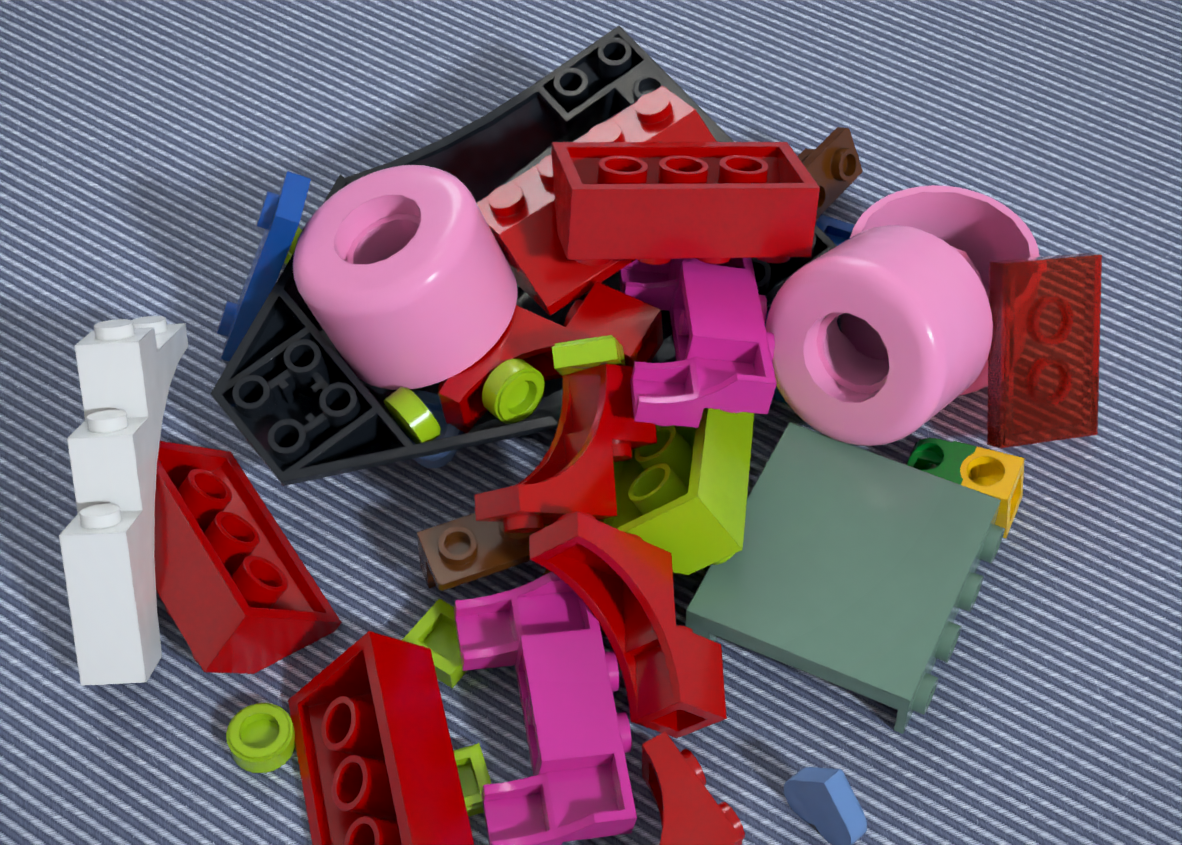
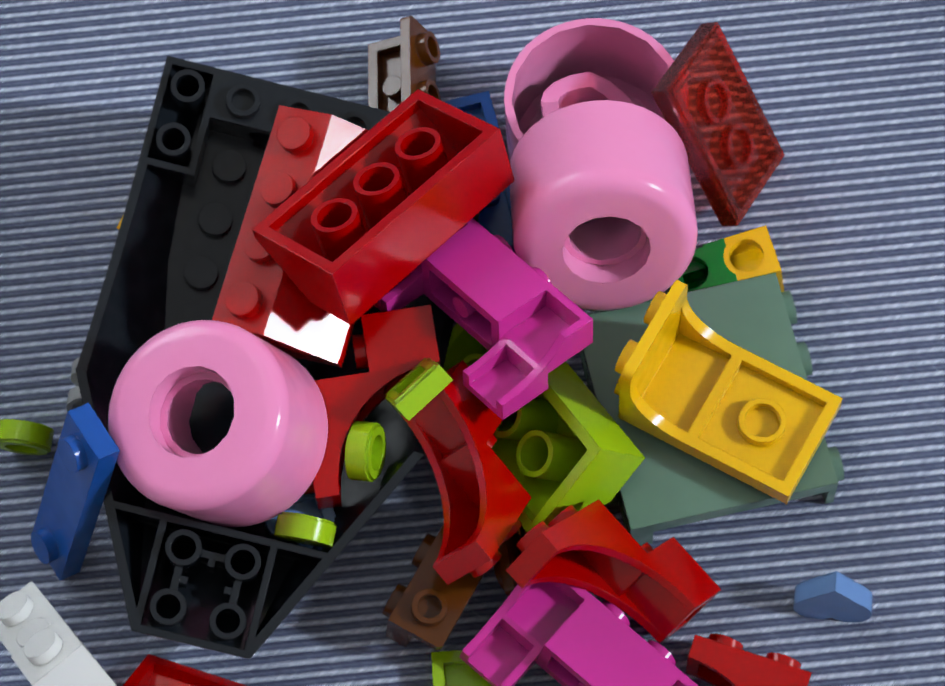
camera: 35 degrees left, 15 degrees up
(848, 543) = (720, 399): none -> yellow bracket

